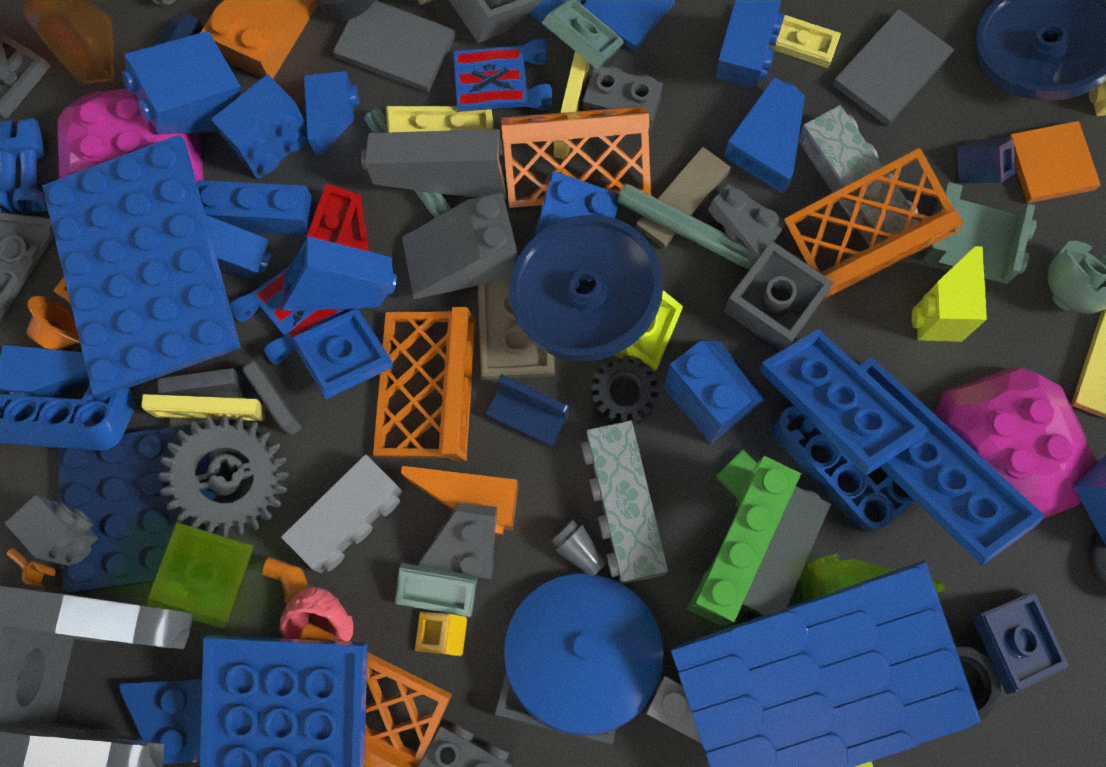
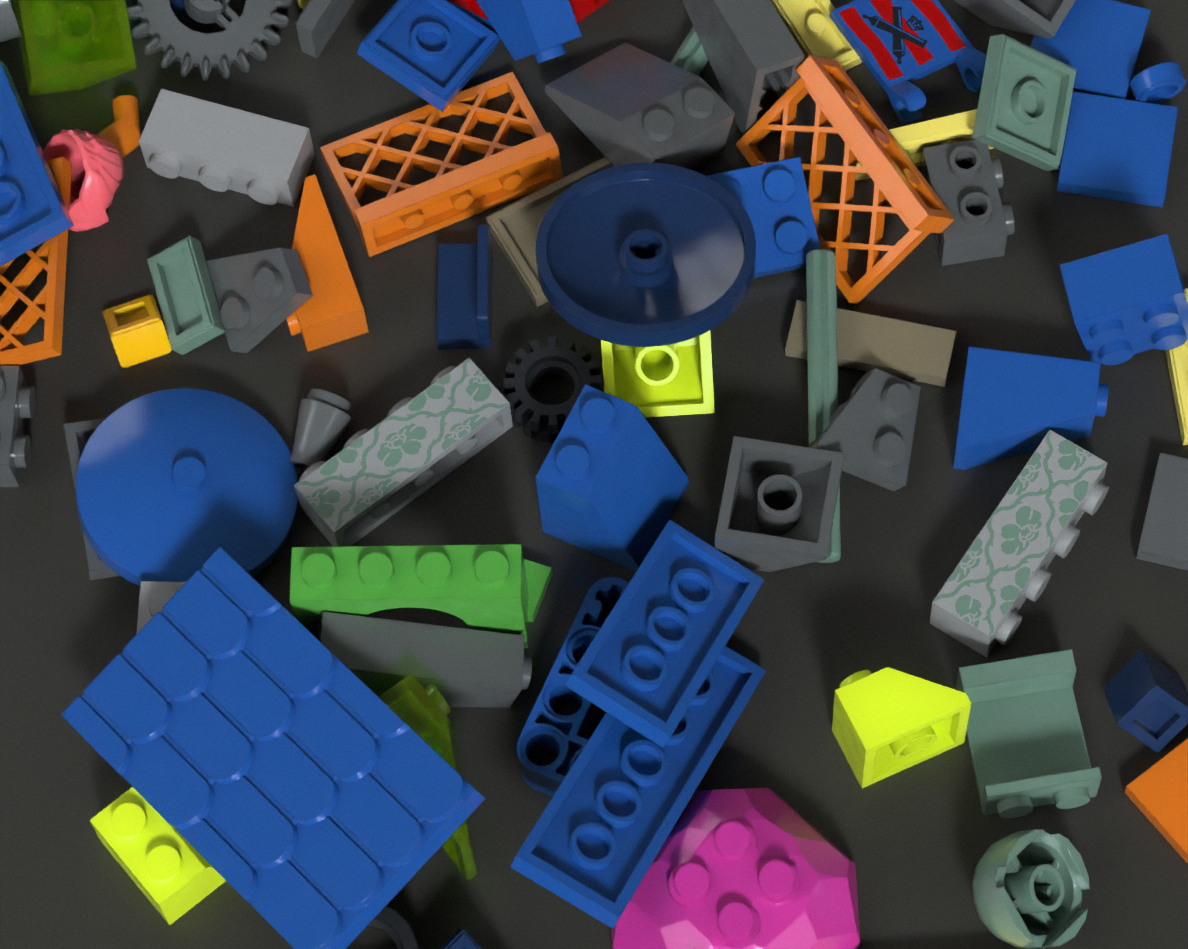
camera: 65 degrees right, 10 degrees down
(896, 246) = (929, 618): orange fence -> none

